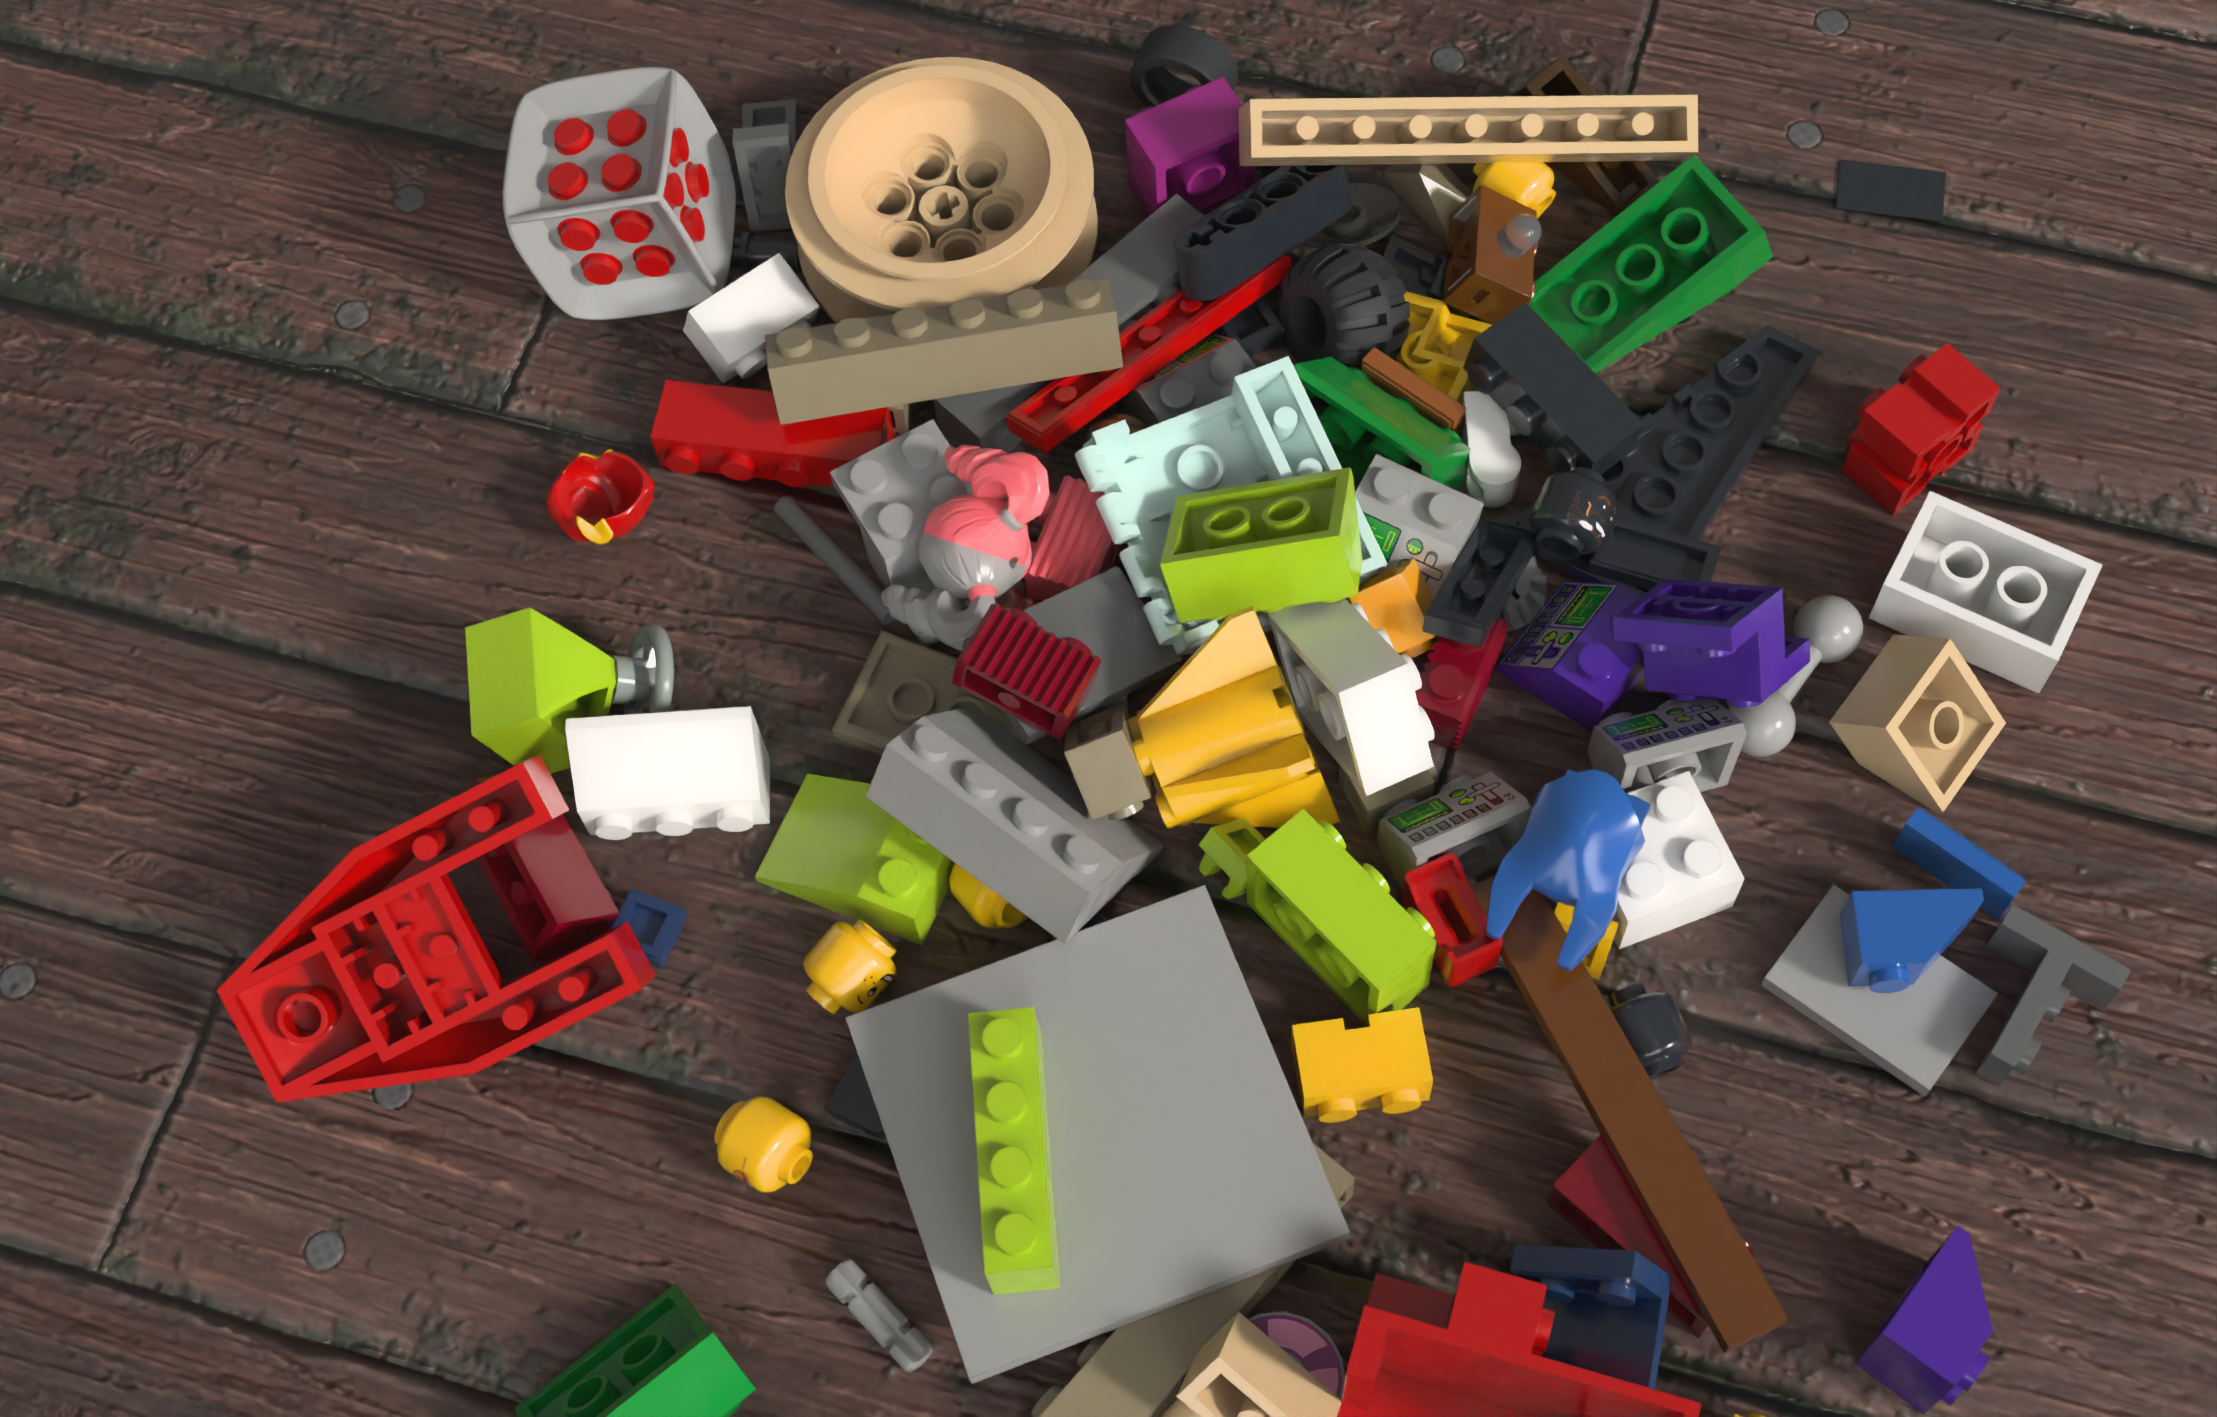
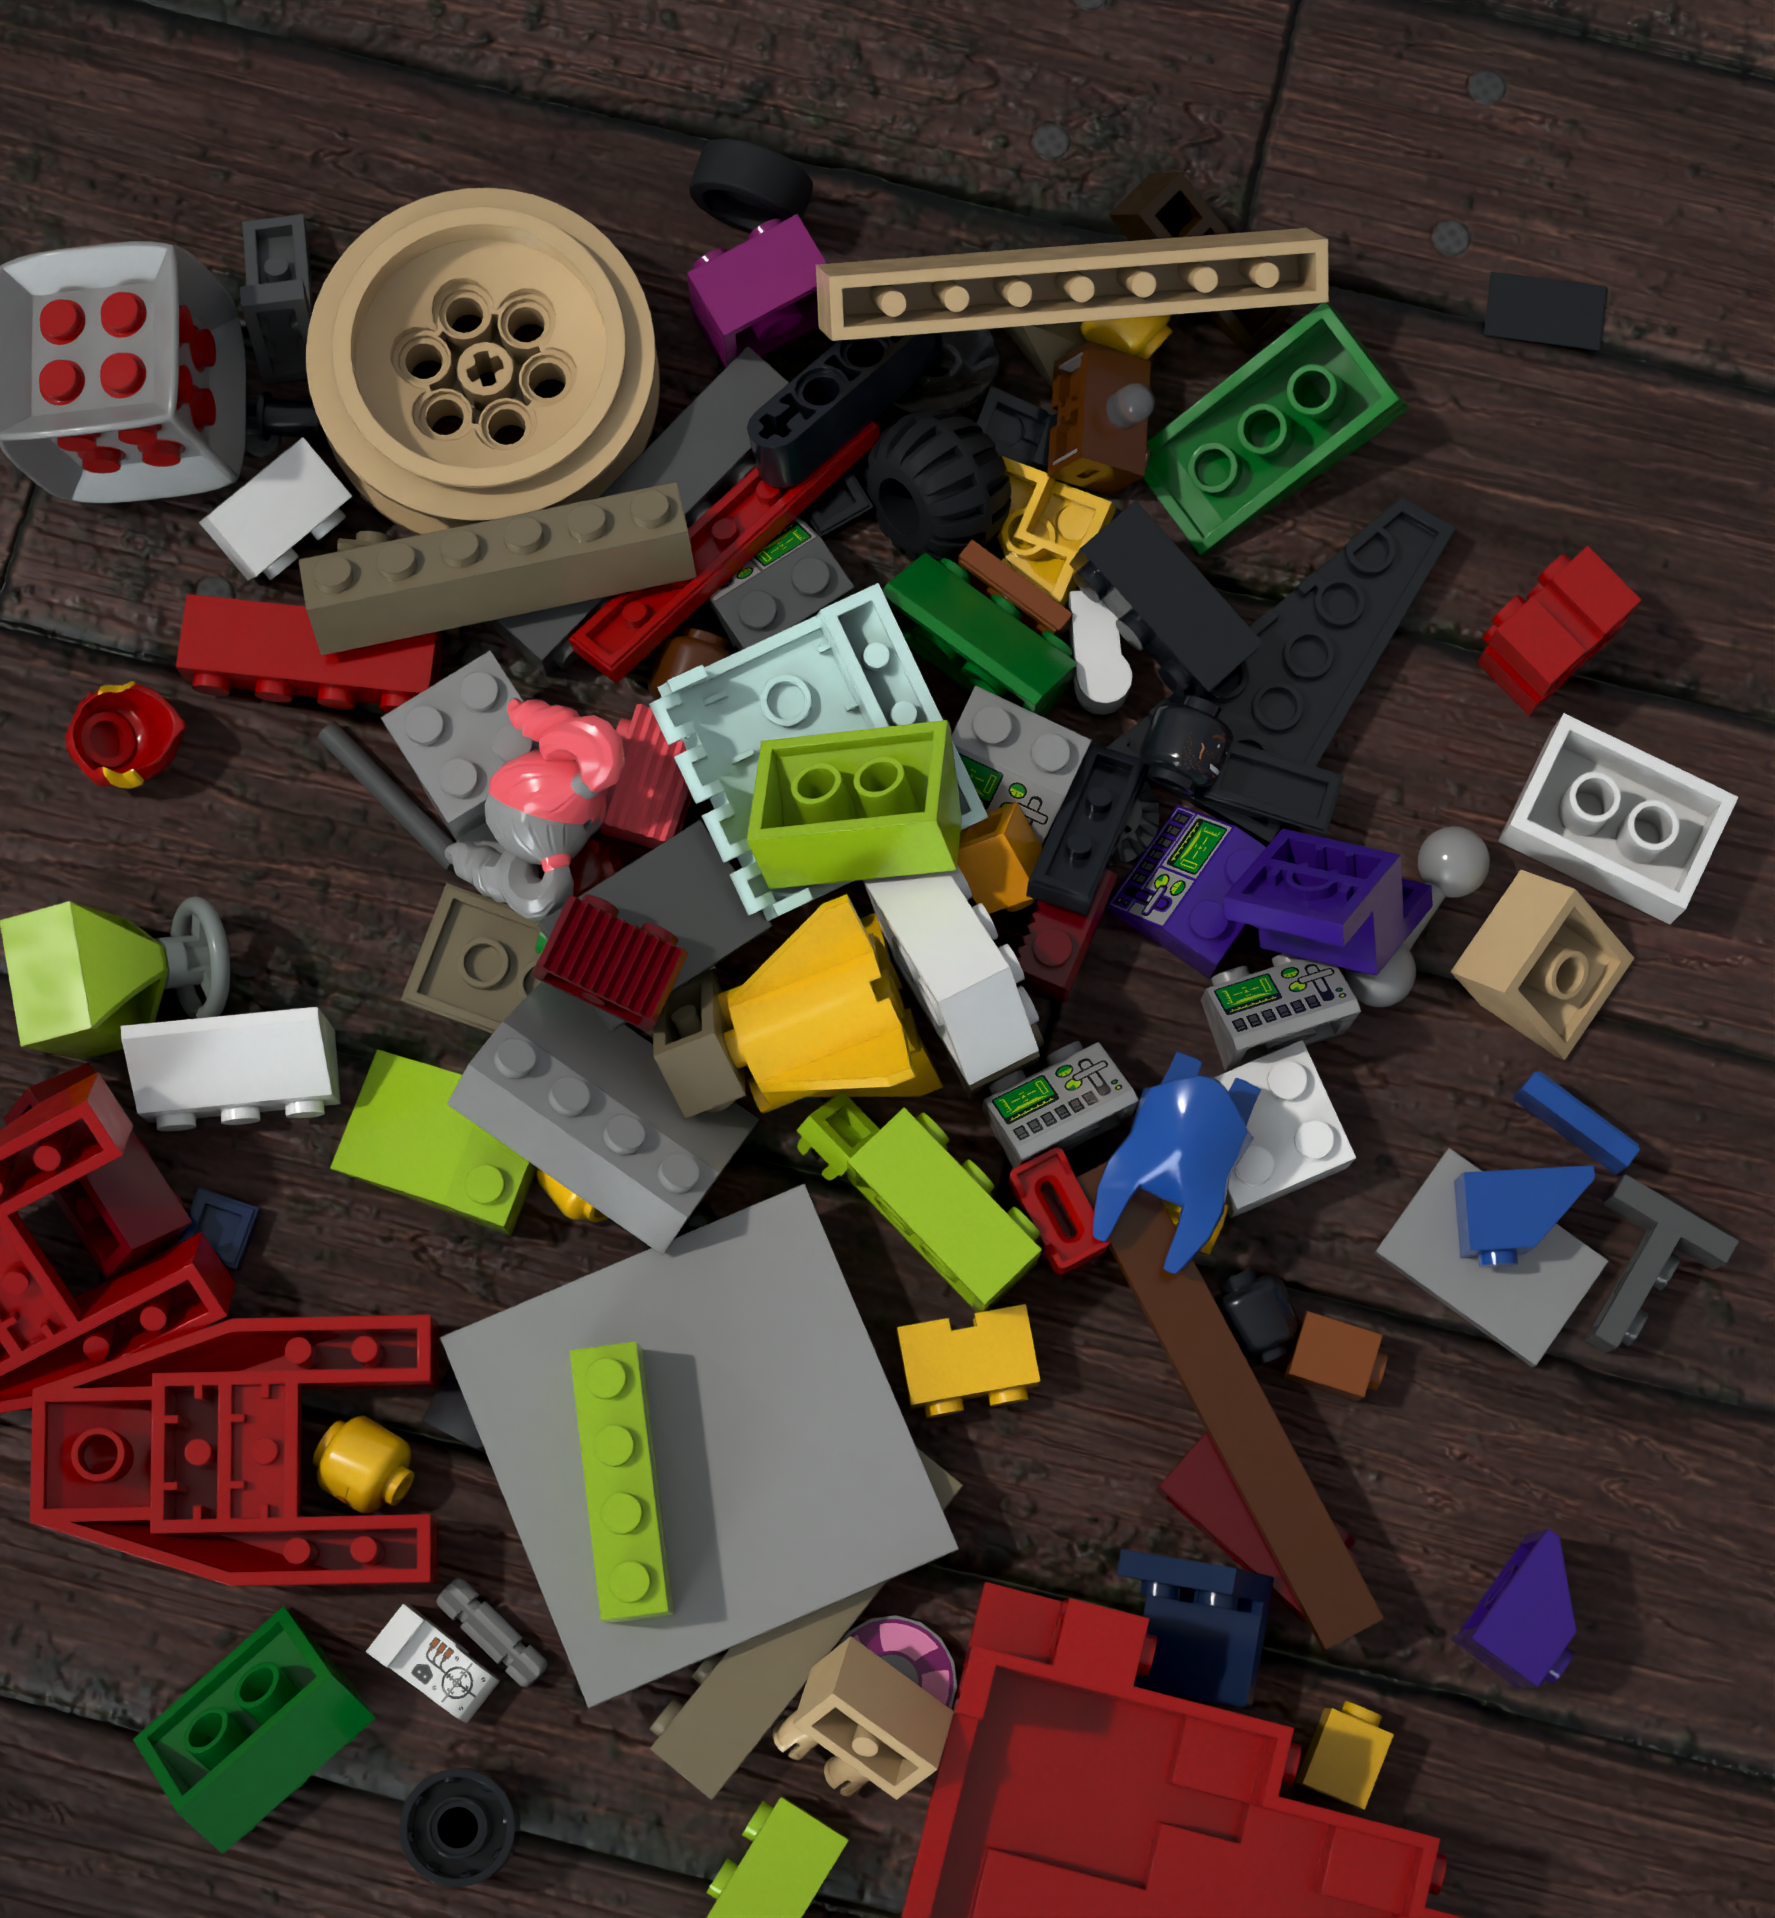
camera: 10 degrees left, 15 degrees up
(606, 1114) = (199, 1452): none -> red wedge
(816, 1339) = (433, 1663): none -> white leg
(849, 967) = (438, 1270): yellow head -> none
(1727, 1075) = (1335, 1358): none -> dark orange brick

